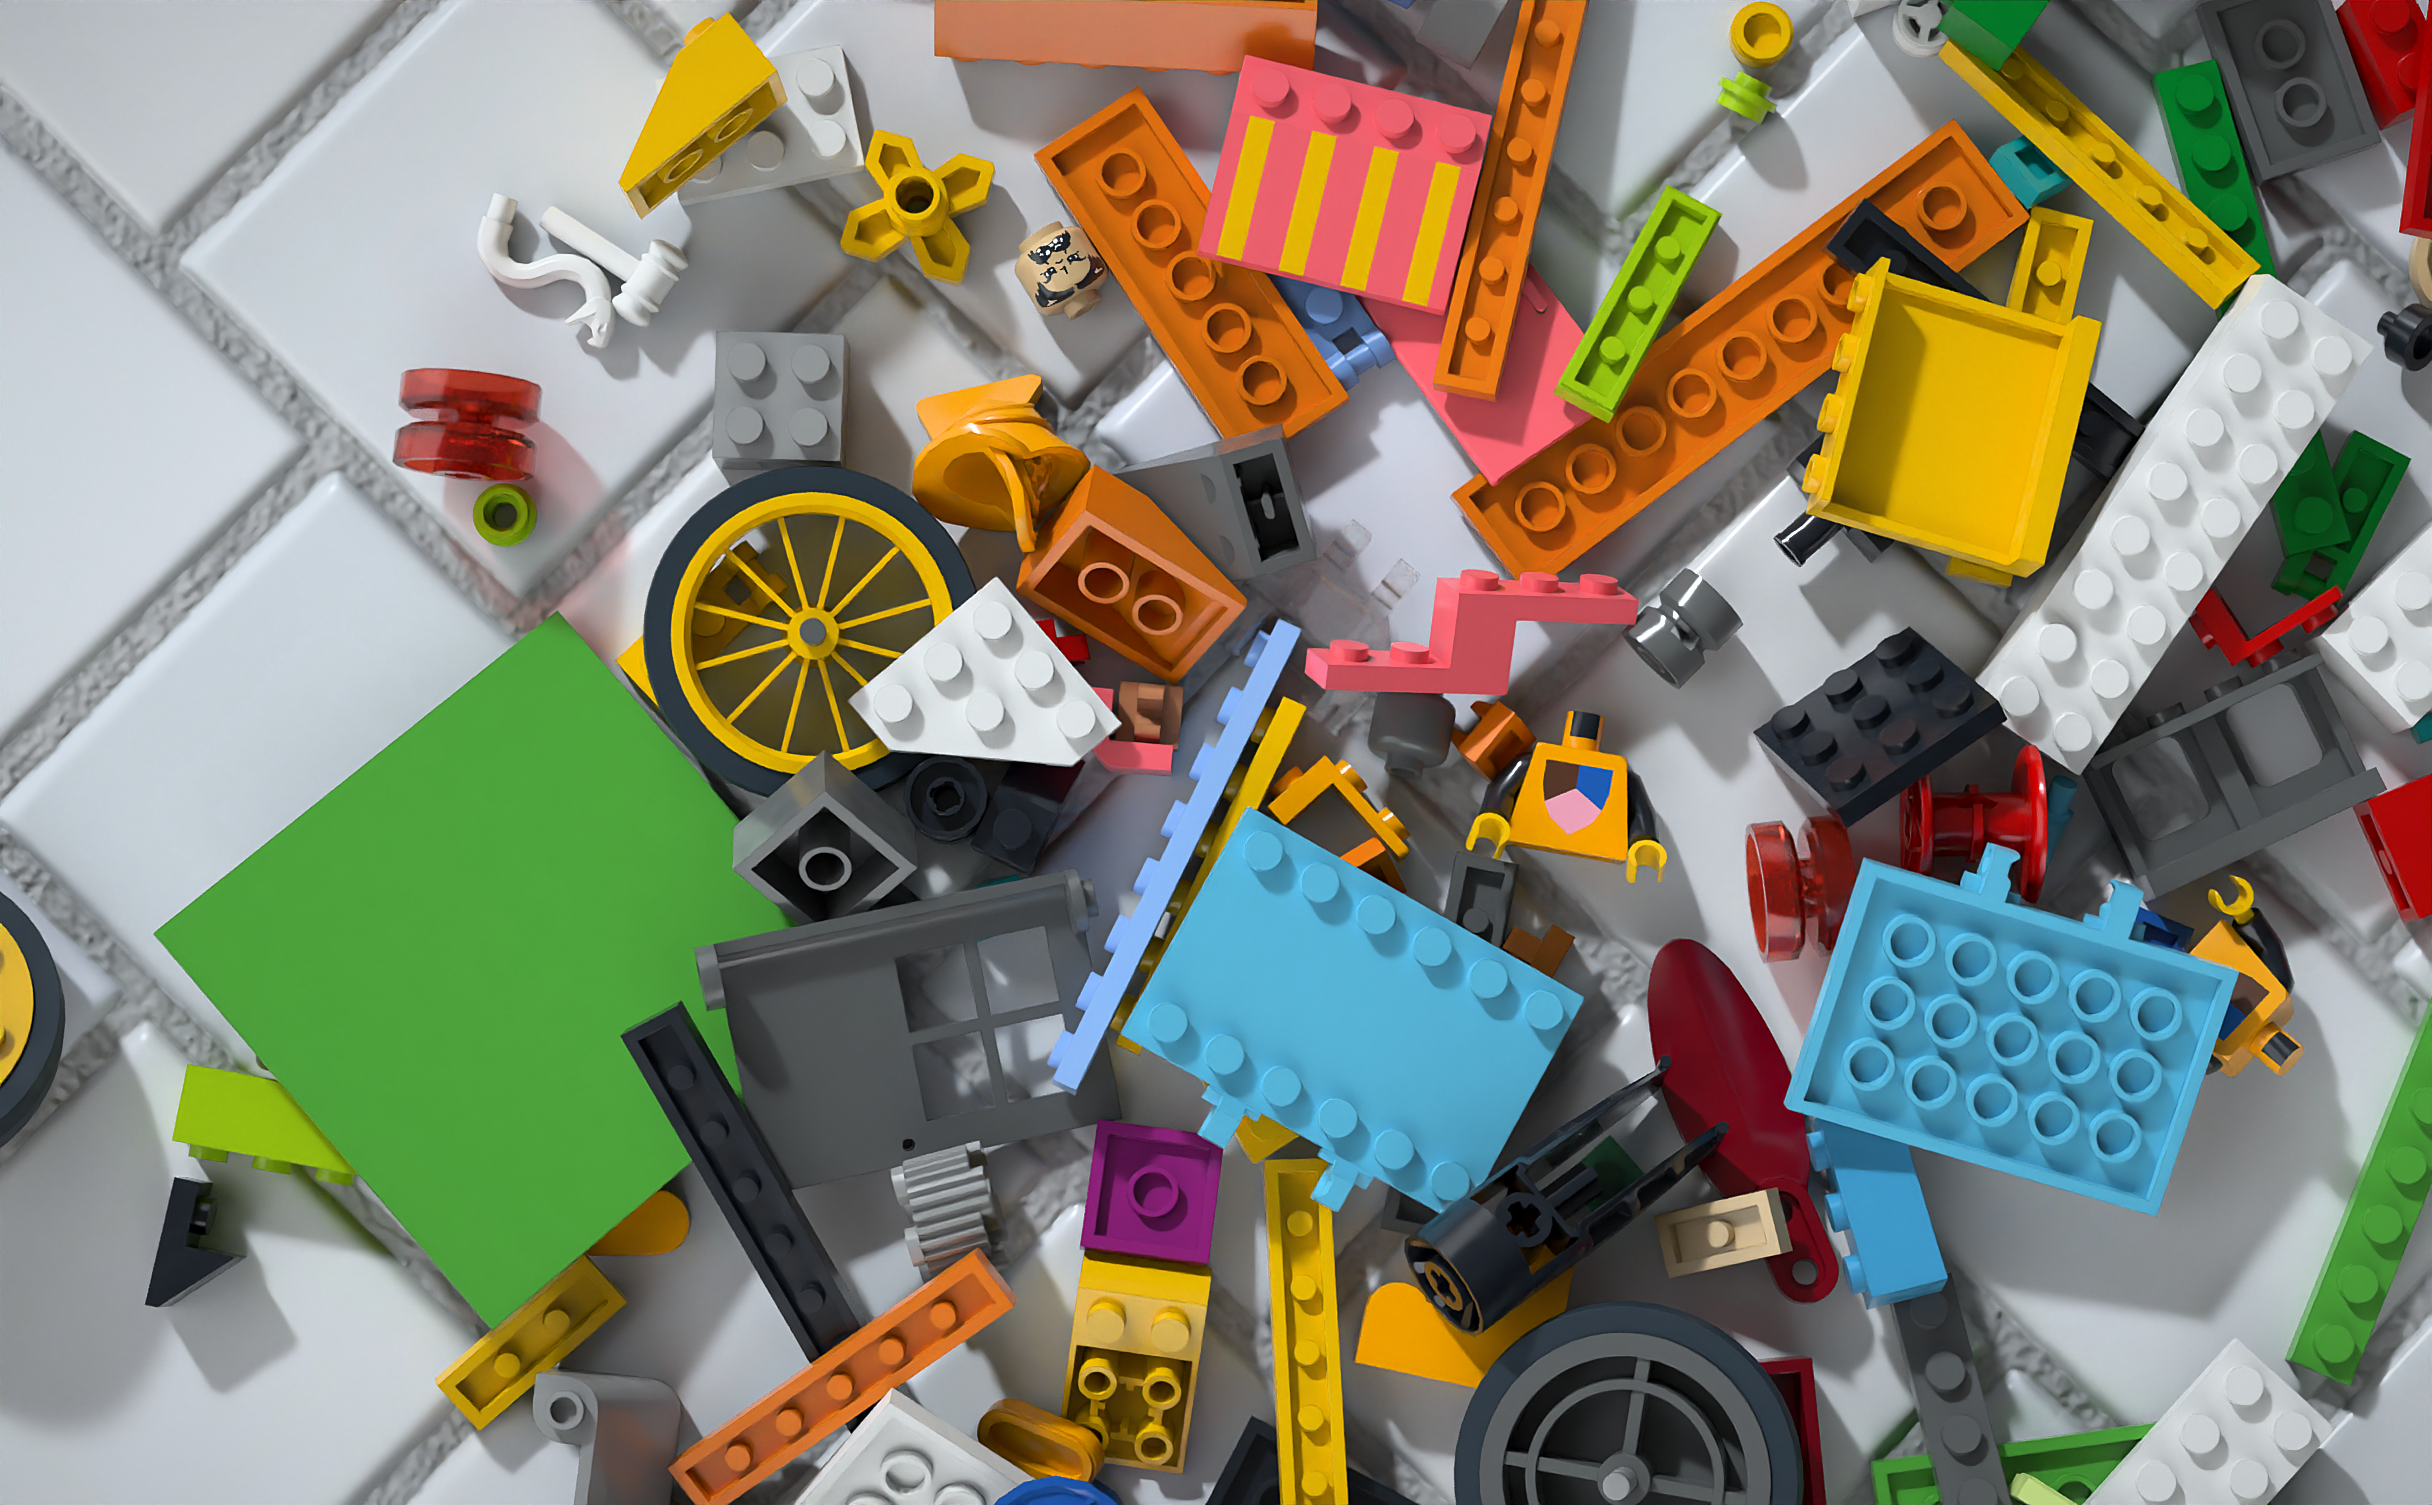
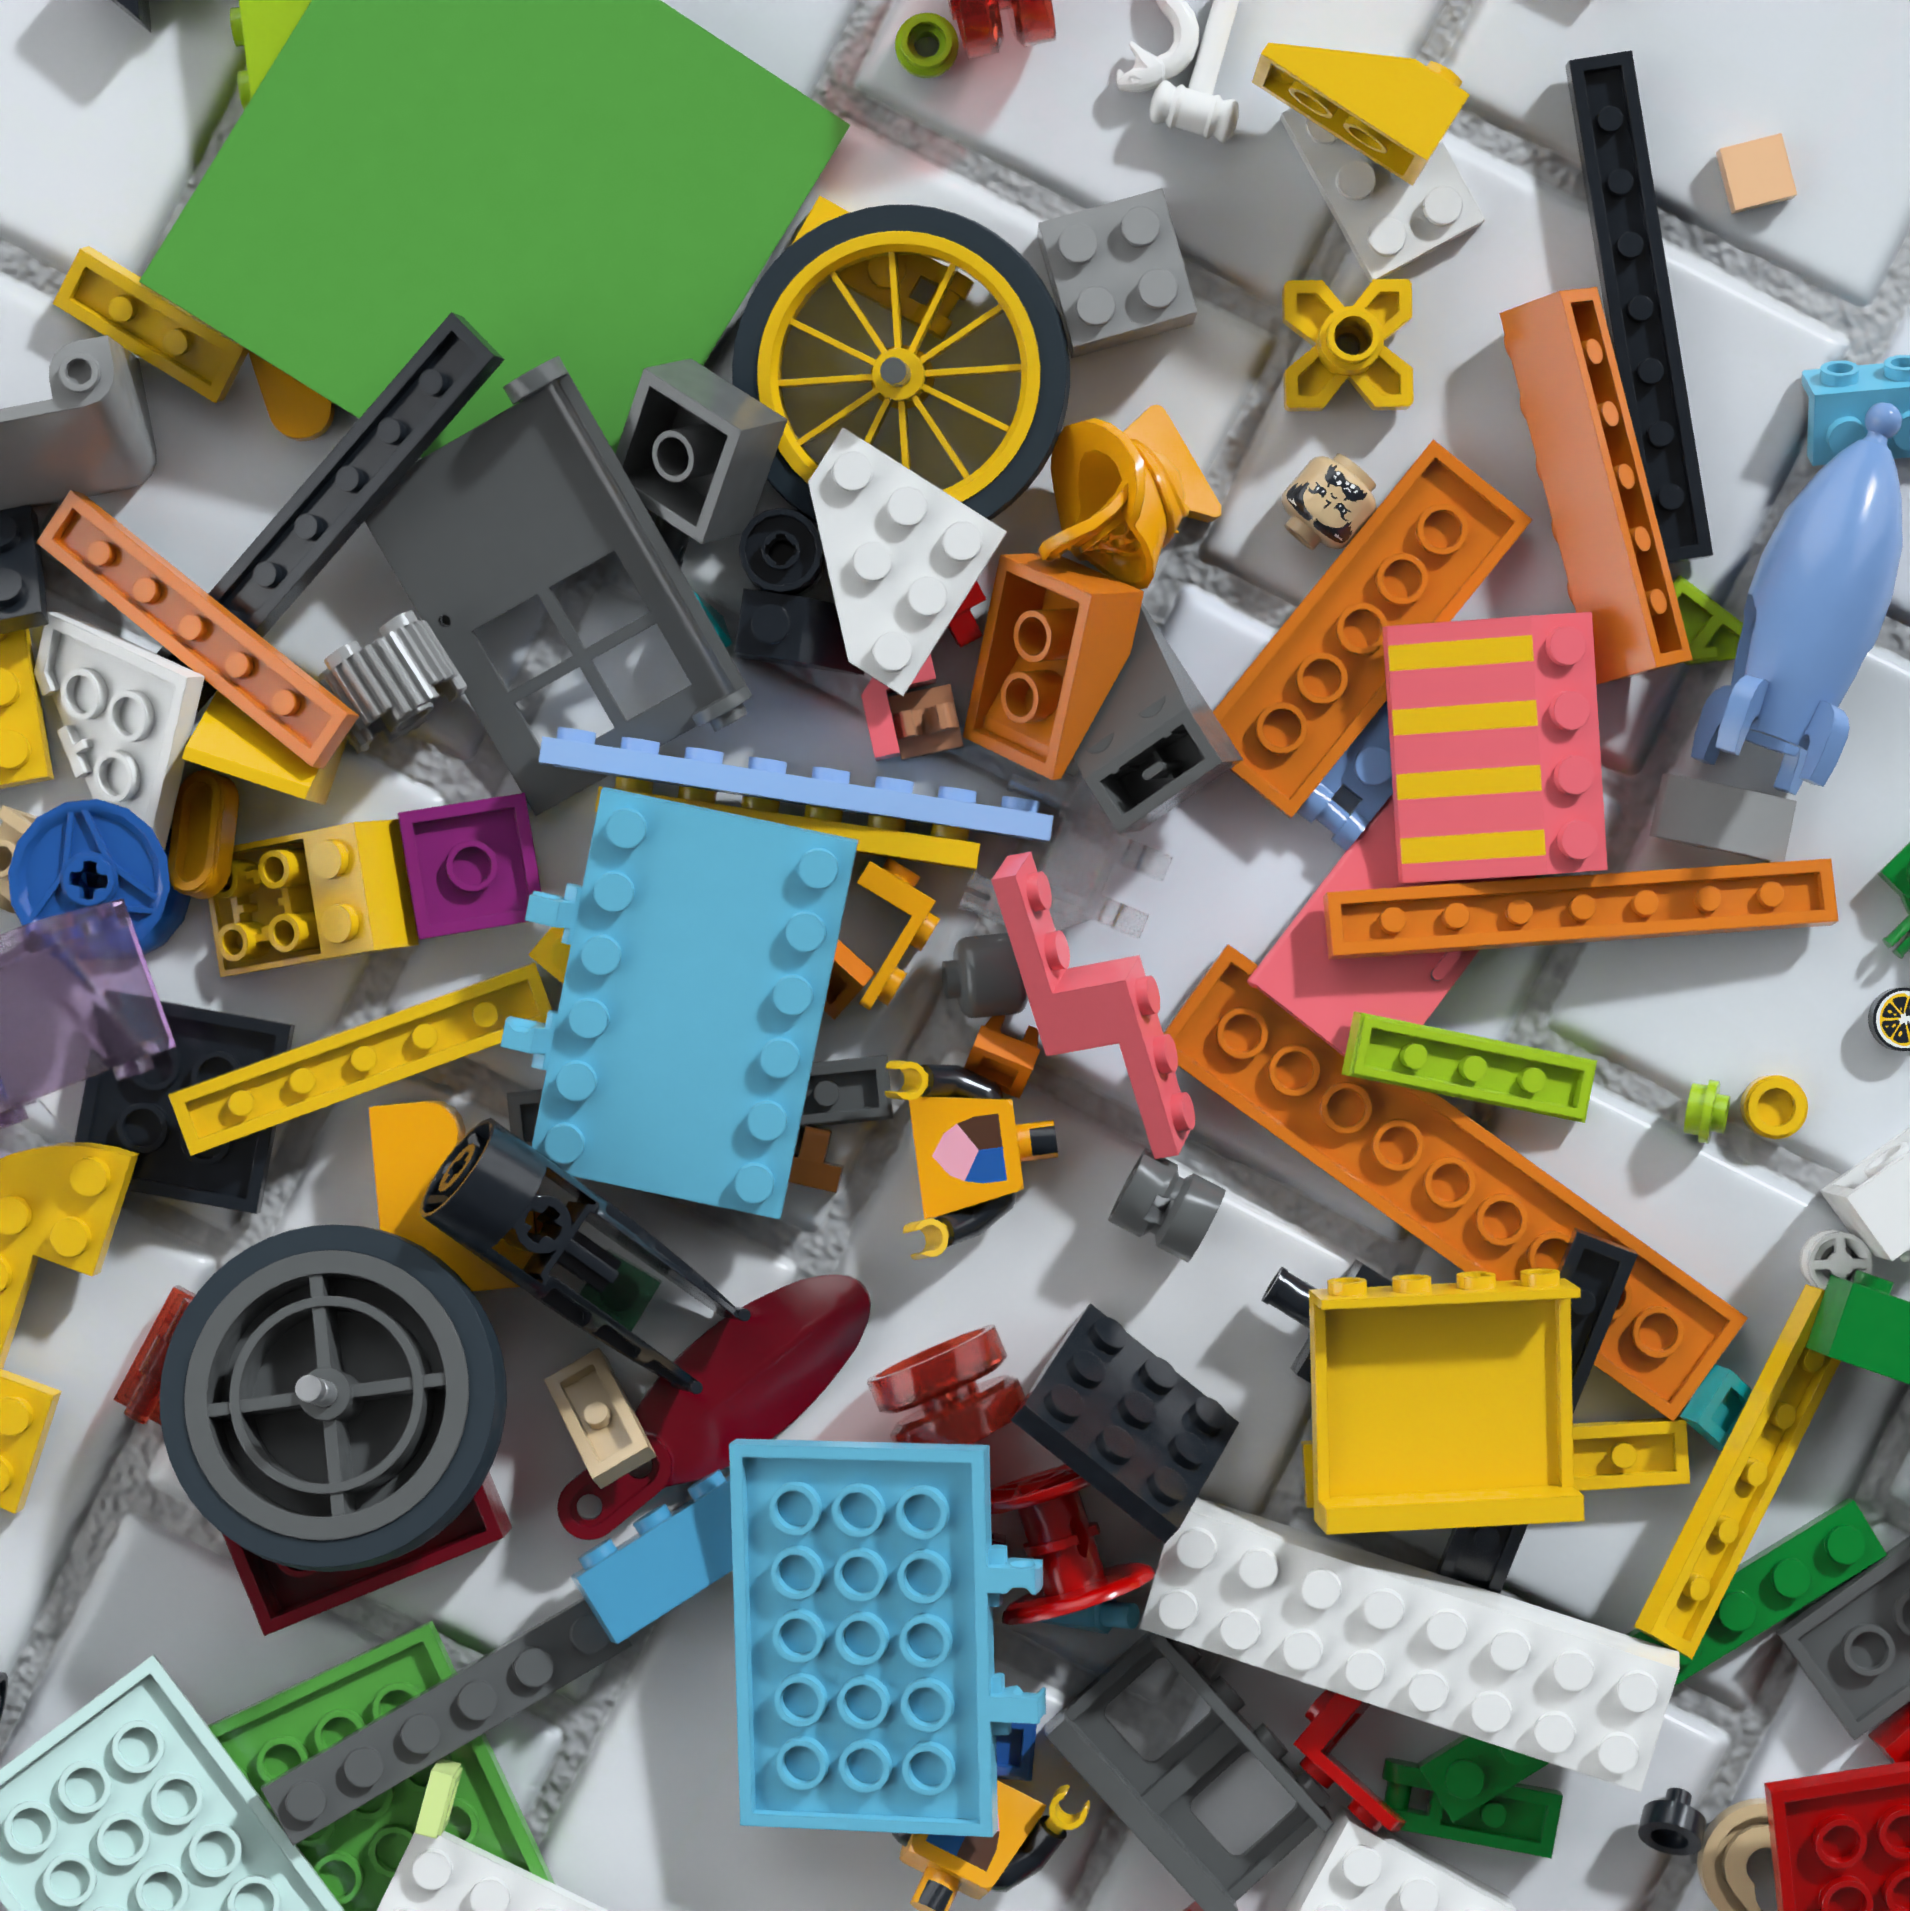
camera: 75 degrees right, 5 degrees up
(972, 1372) = (242, 748): none -> yellow slope

